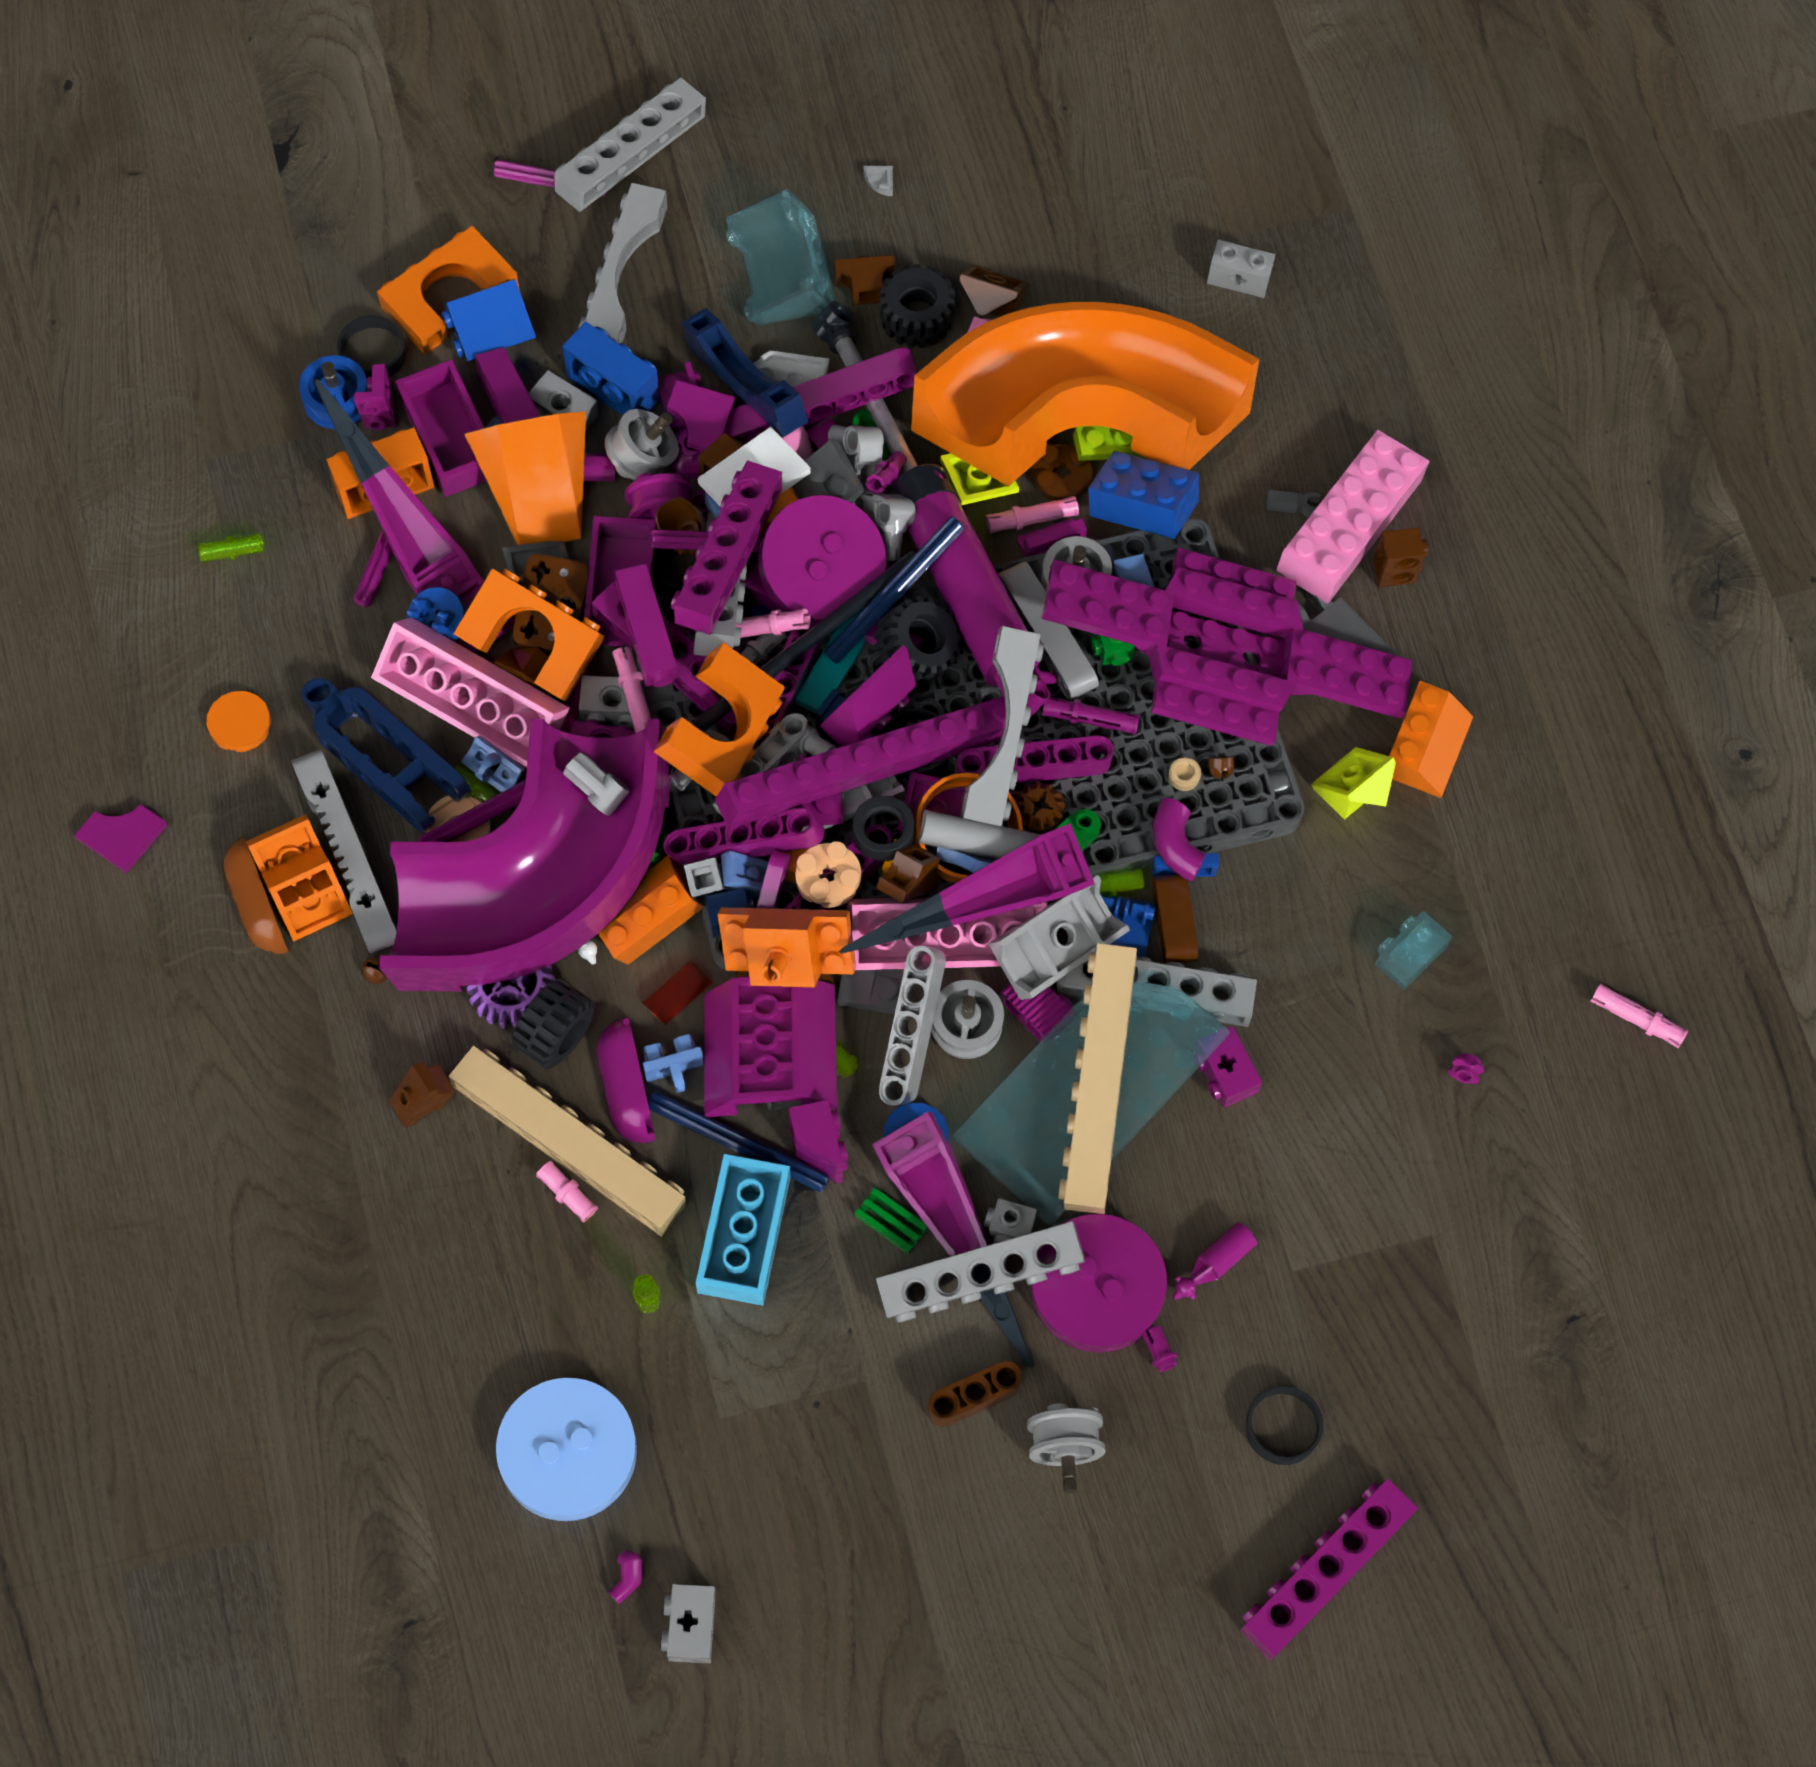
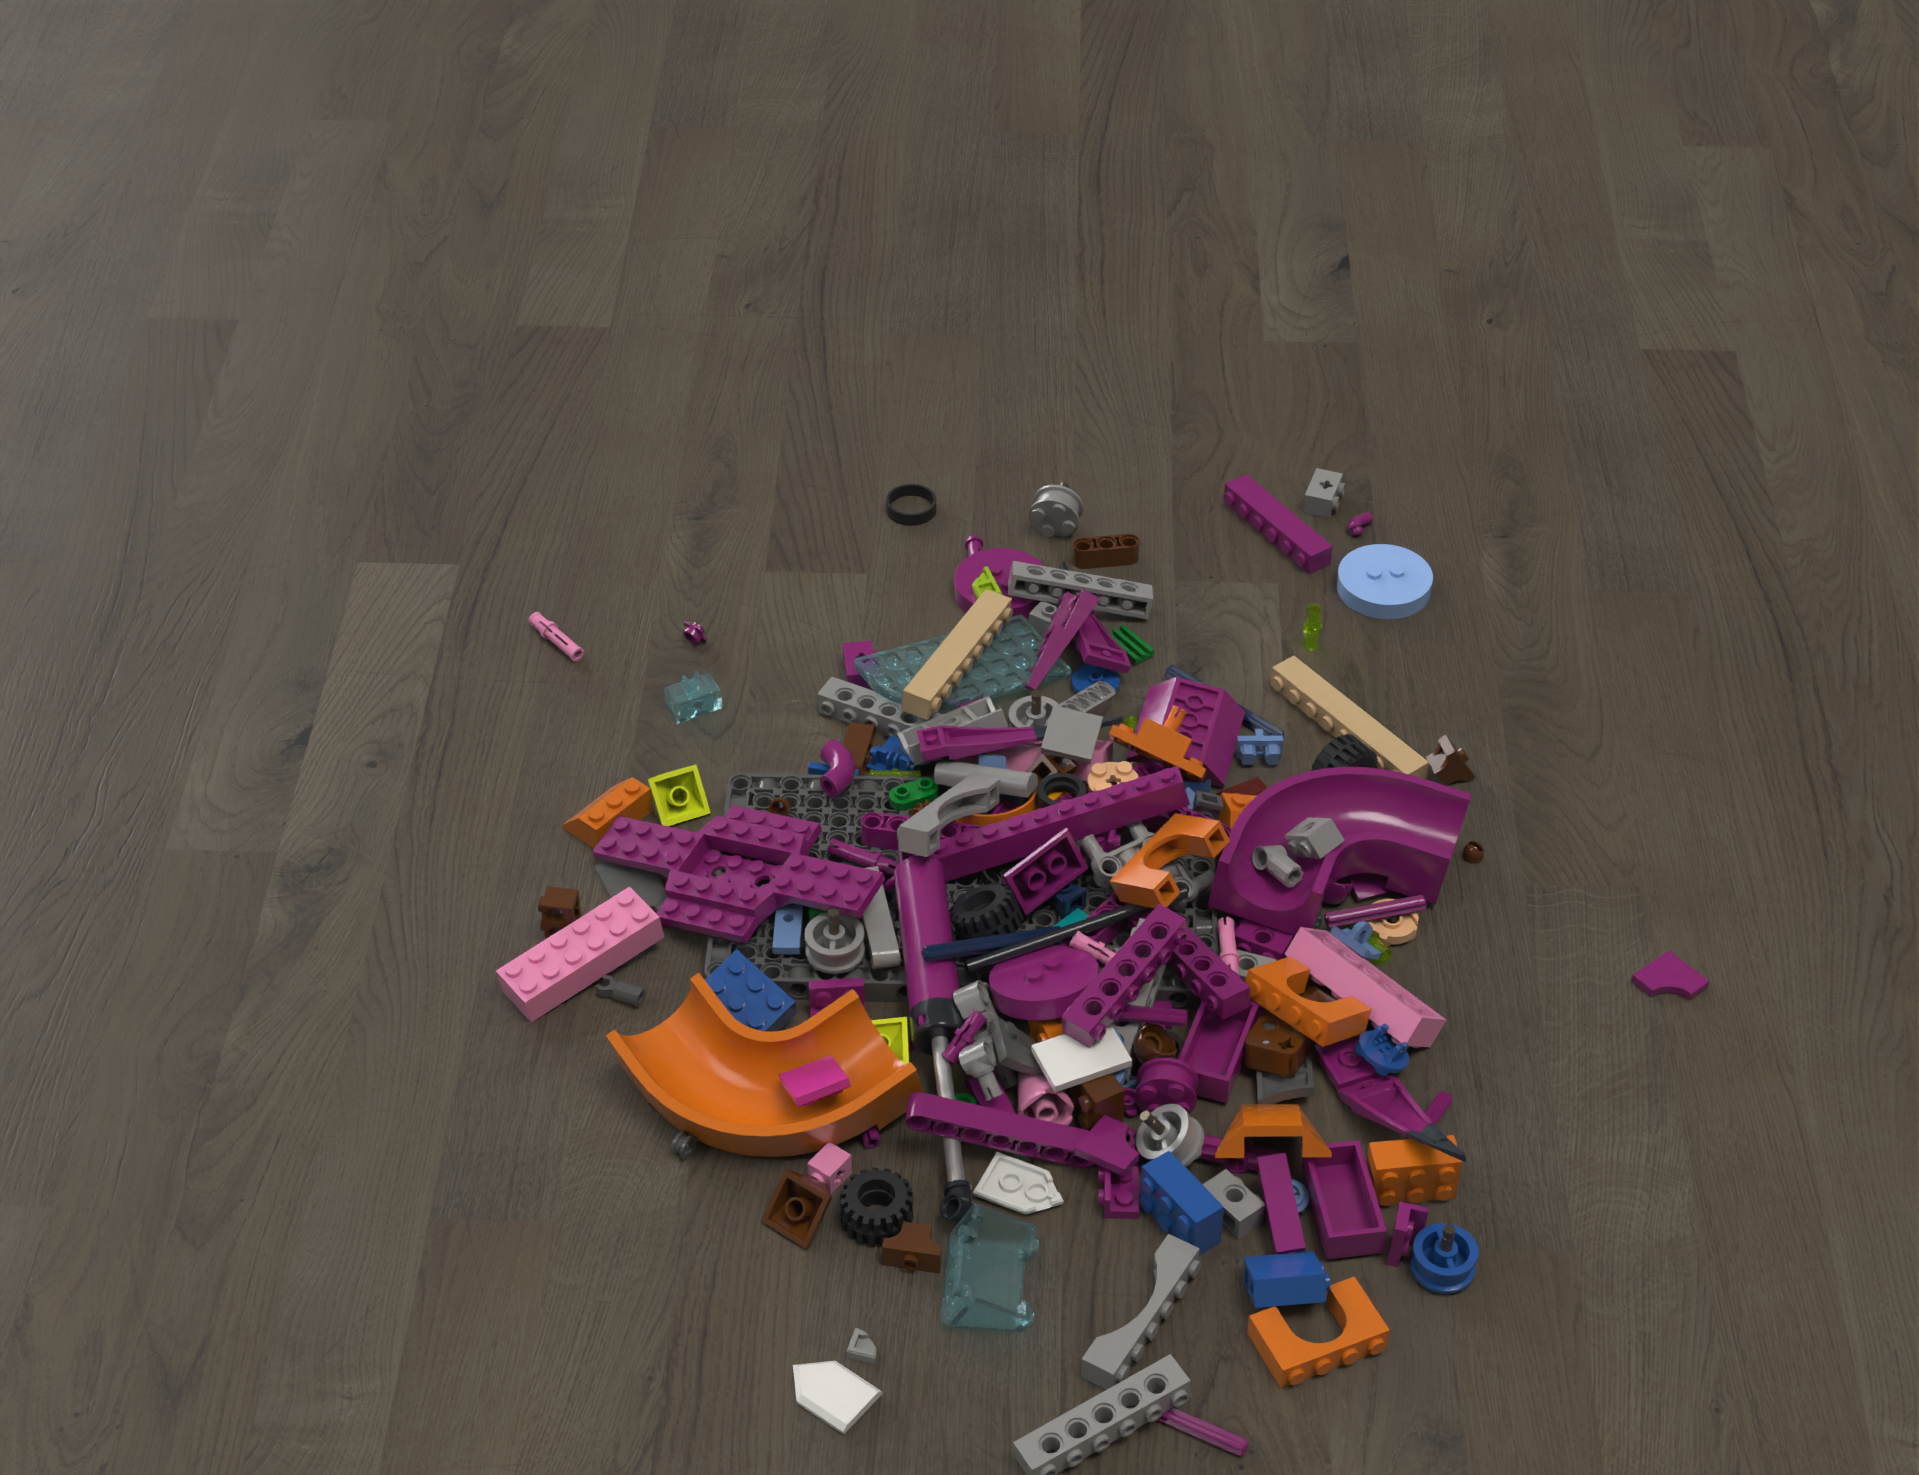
camera: 160 degrees left, 25 degrees down
(231, 547) = (1557, 1160): clear neon green pin -> none
(238, 721) = (1564, 1034): orange tile -> none
(252, 899) = (1564, 913): dark orange brick -> none
(299, 877) = (1526, 903): orange bracket -> none
(316, 780) = (1496, 955): light grey gear -> none
(336, 706) = (1443, 942): dark blue piece -> none
(374, 321) = (1411, 1279): black tyre -> none
(565, 833) = (1313, 838): none -> light grey brick
(567, 1191) = (1355, 696): bright pink pin -> none
(624, 1083) = (1297, 746): magenta brick -> none
(646, 626) = (1209, 952): magenta brick -> none
(743, 1229) = (1235, 647): medium azure brick -> none
(745, 1530) = (1278, 524): none -> magenta brick
(772, 399) = (1071, 1191): dark blue arch -> none
(816, 1137) = (1169, 663): magenta slope -> none
(890, 131) = (833, 1393): none -> white tile
(895, 903) = (1071, 734): none -> light grey tile
(974, 1175) = (1064, 625): none -> magenta wedge
(1022, 371) = (814, 1081): none -> dark pink tile
(1111, 1243) = (984, 582): none -> lime tile
(1184, 774) = (810, 811): tan tile -> none
(1216, 1260) = (915, 579): magenta wheel -> none
(1241, 268) = (564, 1172): light grey brick -> none
(1273, 1637) = (915, 440): magenta brick -> none

